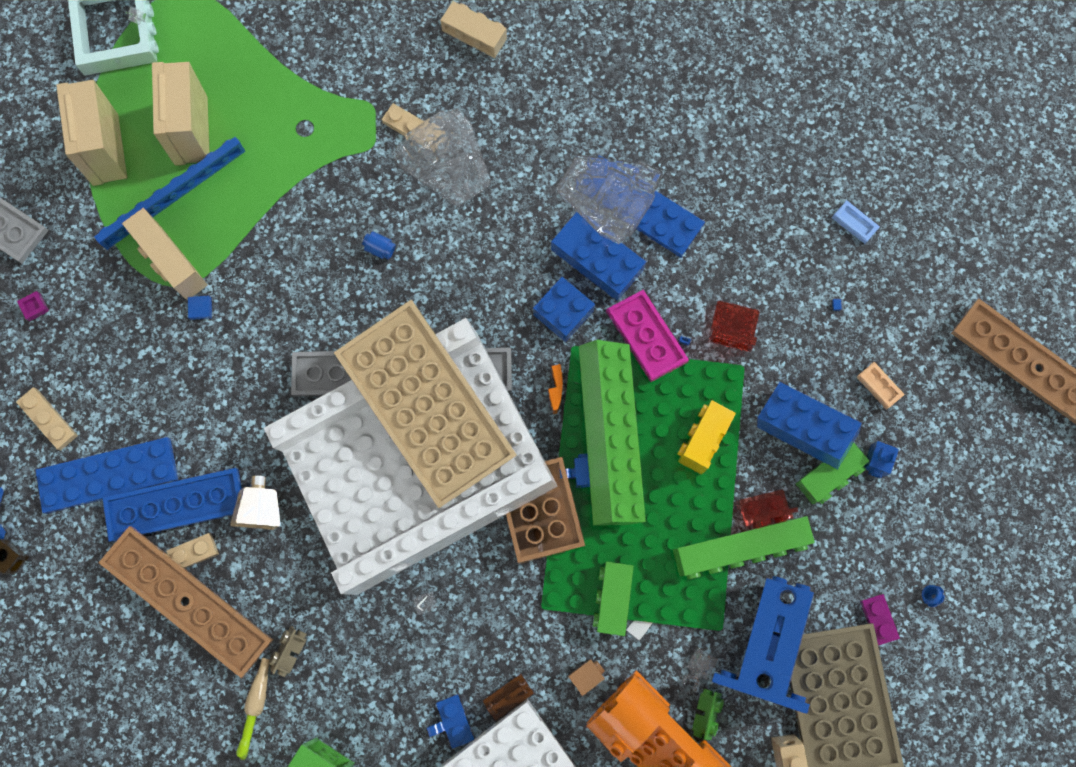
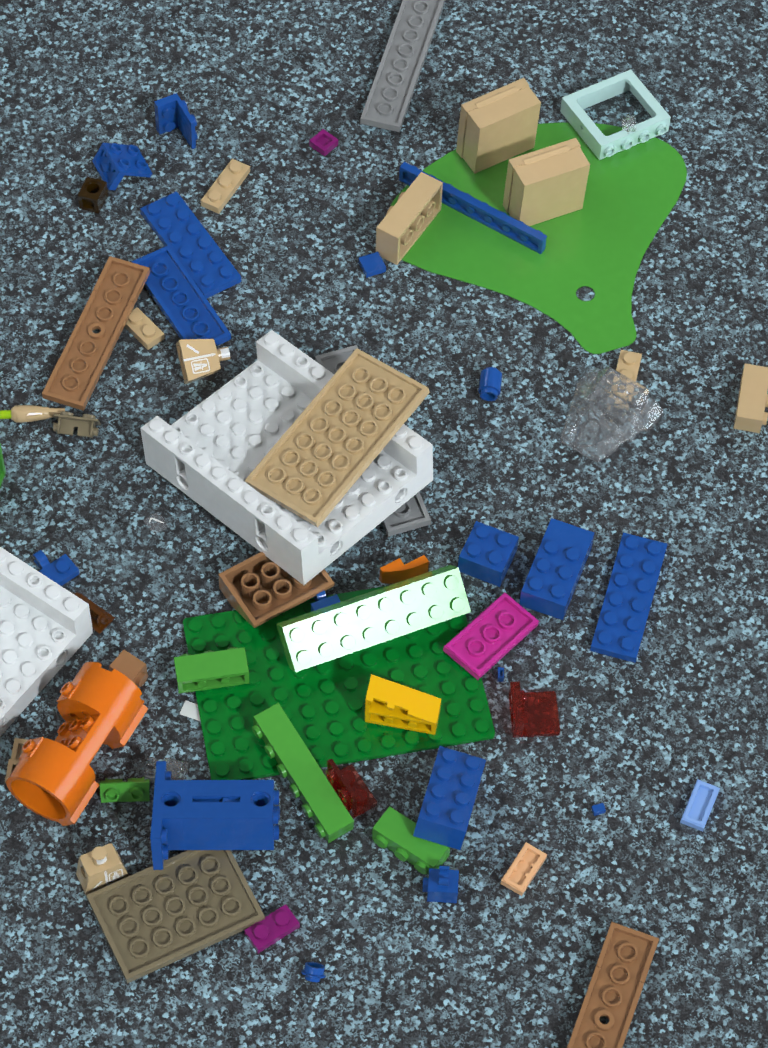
camera: 70 degrees right, 20 degrees down
(609, 193) = (620, 554): clear wedge -> none

